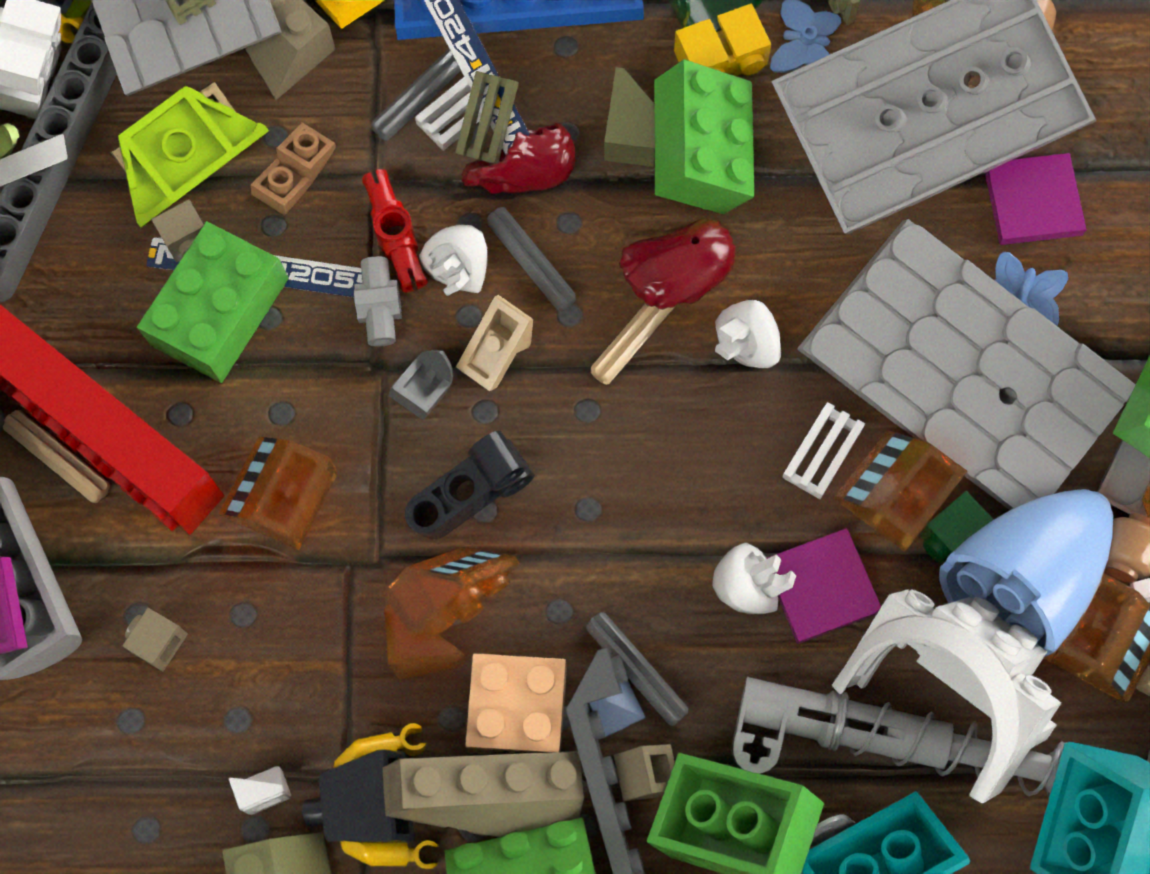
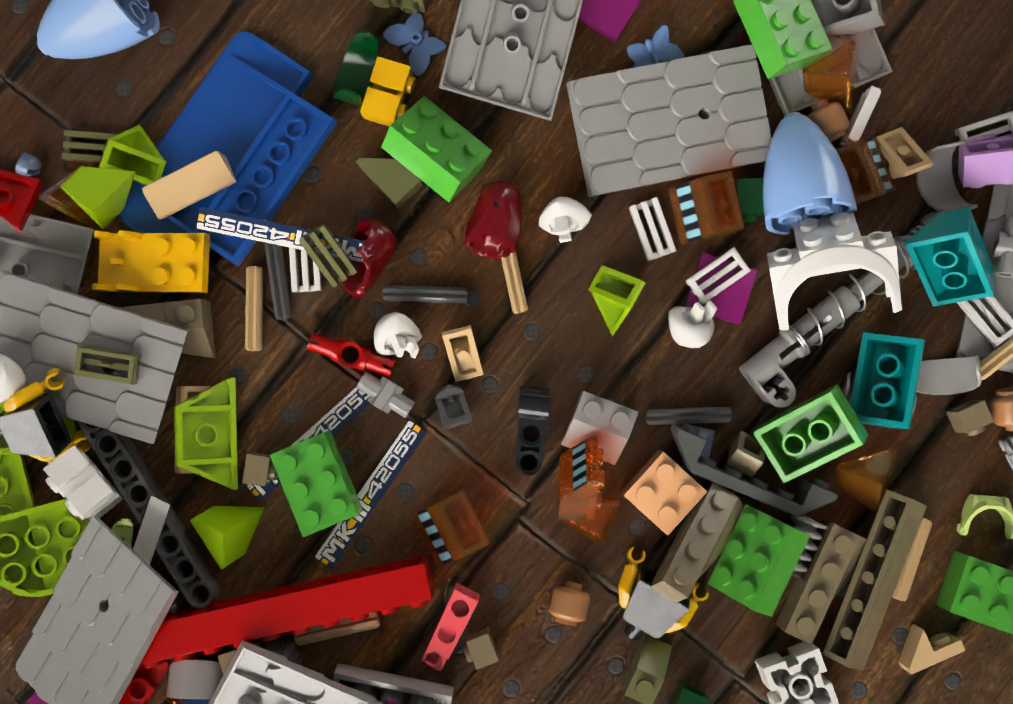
camera: 60 degrees left, 15 degrees up
(82, 253) = (227, 531): none -> lime slope
(154, 581) = (450, 626): none -> coral leg
(249, 378) = (372, 493): none -> sticker
(260, 790) = (601, 650): white slope -> none
(289, 701) = (569, 604): none -> medium nougat head
(294, 170) = (268, 380): medium nougat slope -> none
(364, 94) = (254, 308): none -> tan axle
(548, 571) = (603, 419): none -> light grey slope
(708, 469) = (615, 295): none -> lime slope
(832, 582) = (697, 290): none -> white tile

